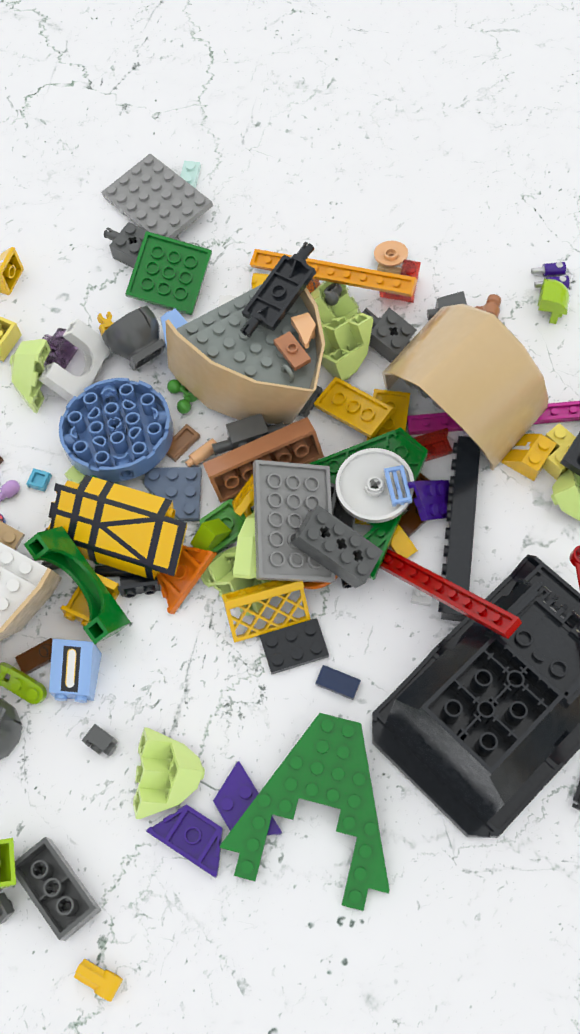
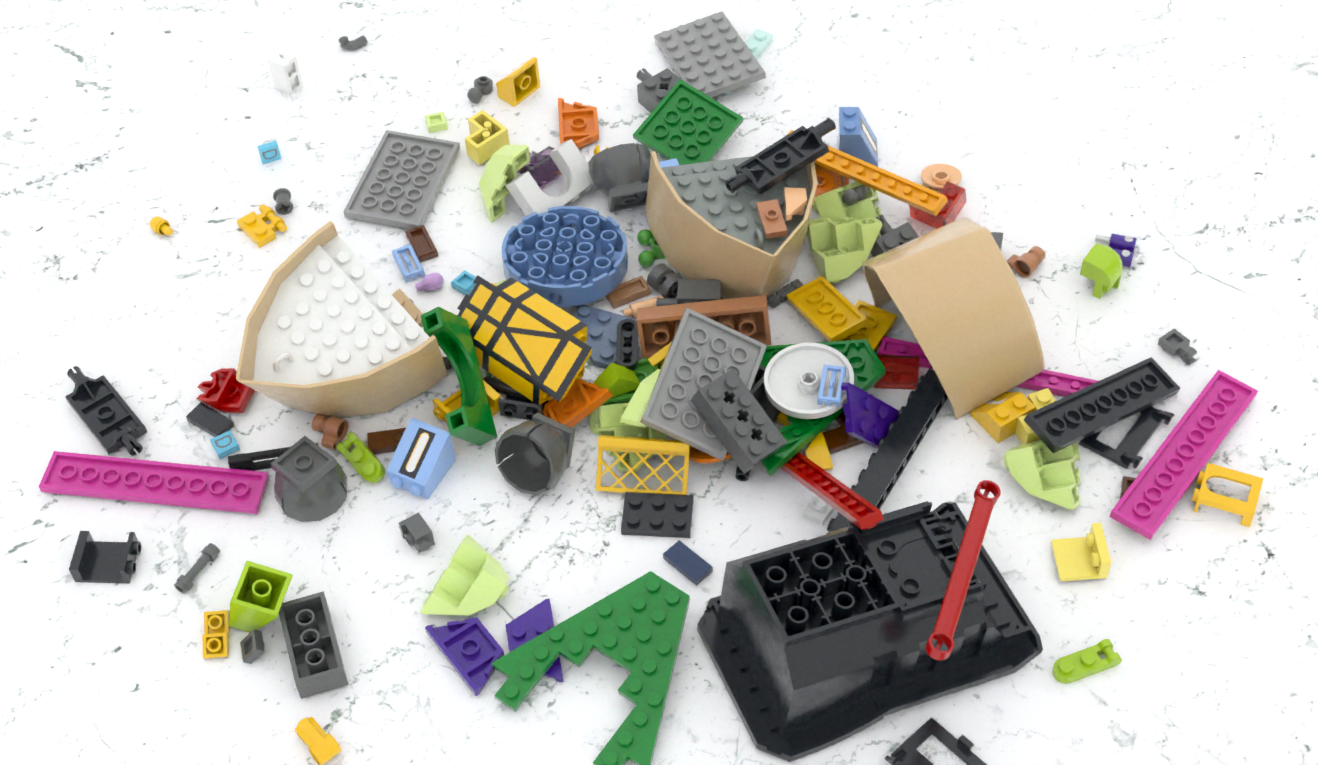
camera: 20 degrees right, 15 degrees down
(72, 297) = (578, 123): none -> orange wing
(173, 632) = (540, 454): none -> dark grey plate
(202, 491) = (627, 344): none -> black plate
(209, 423) = (664, 280): none -> dark grey wheel
(306, 230) = (856, 135): none -> medium blue slope

